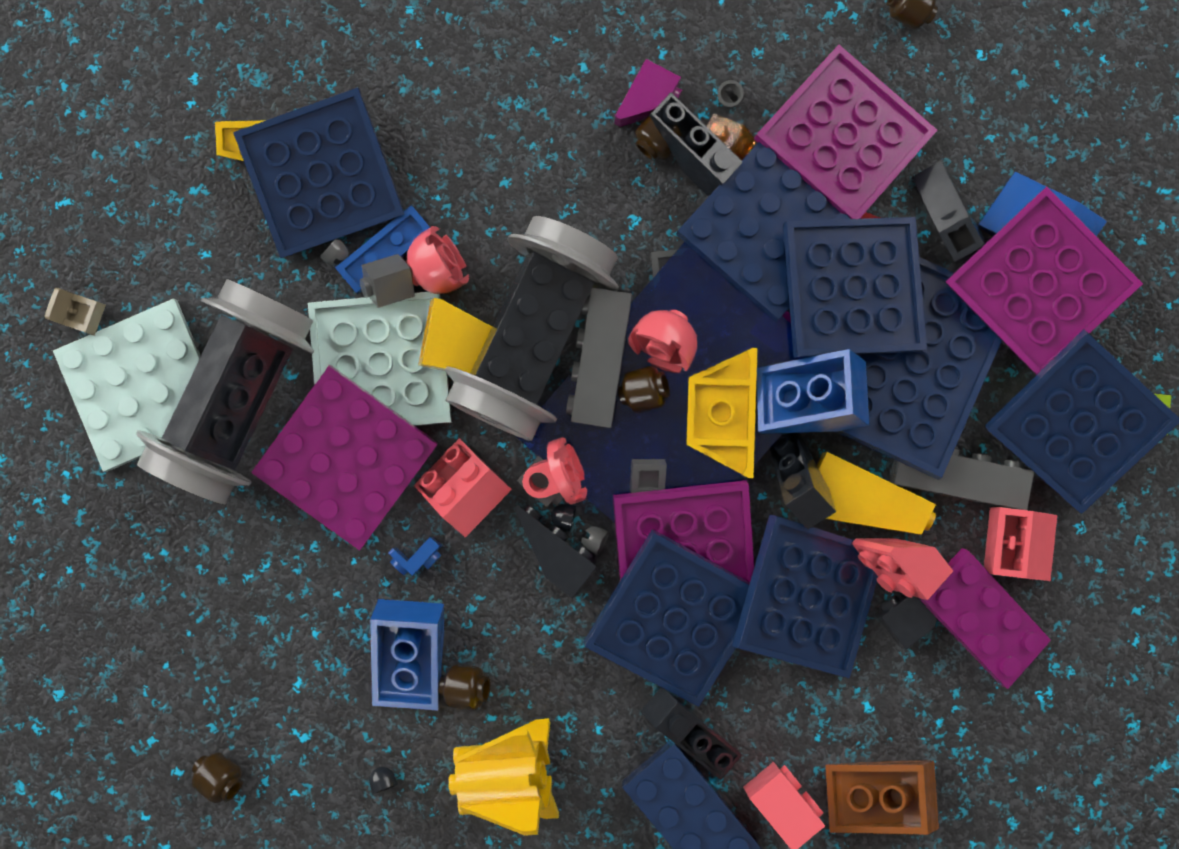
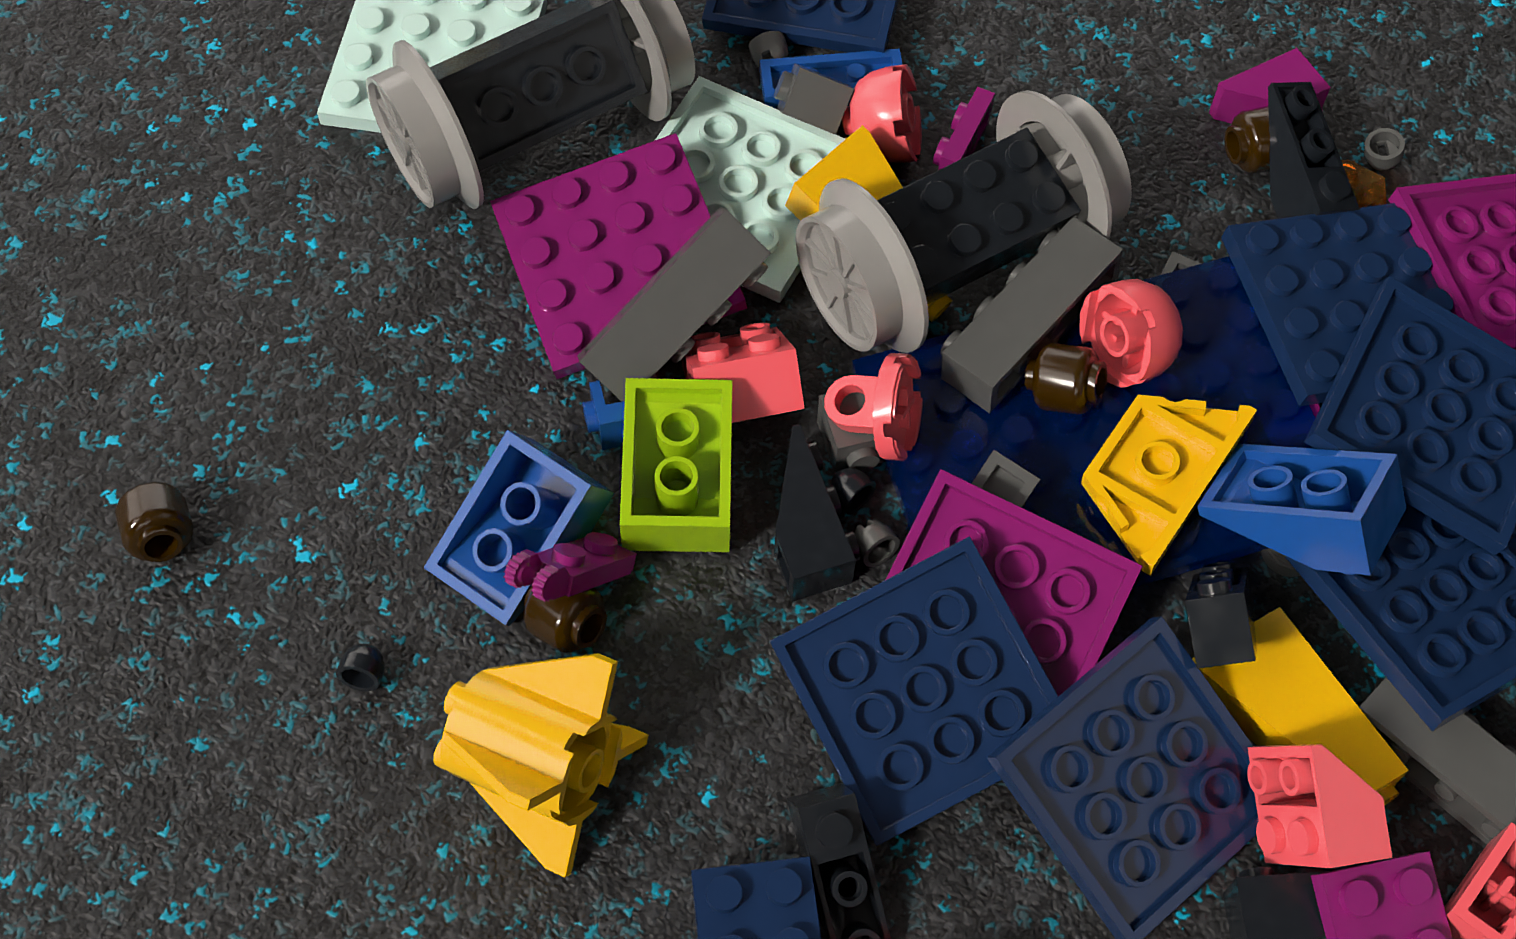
camera: 30 degrees right, 25 degrees down
(405, 482) = (676, 303): none -> dark grey brick
(455, 668) = (570, 566): none -> magenta hinge
(468, 571) = (676, 465): none -> lime slope
(488, 259) = (968, 126): none -> magenta plate

